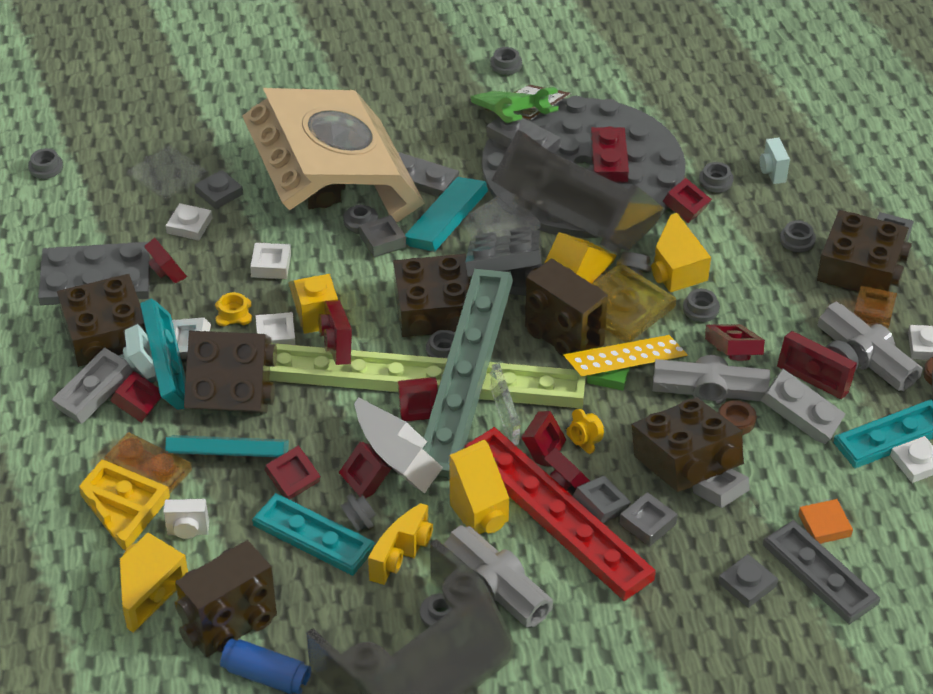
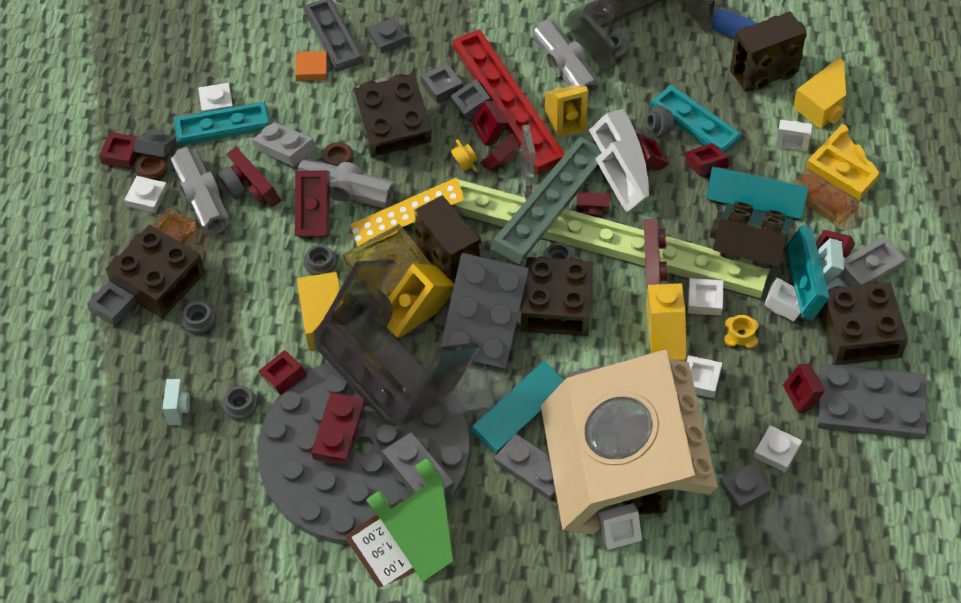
camera: 165 degrees left, 10 degrees up
(45, 163) = (933, 546): dark grey plate -> none
(400, 539) = (632, 92): yellow slope -> none

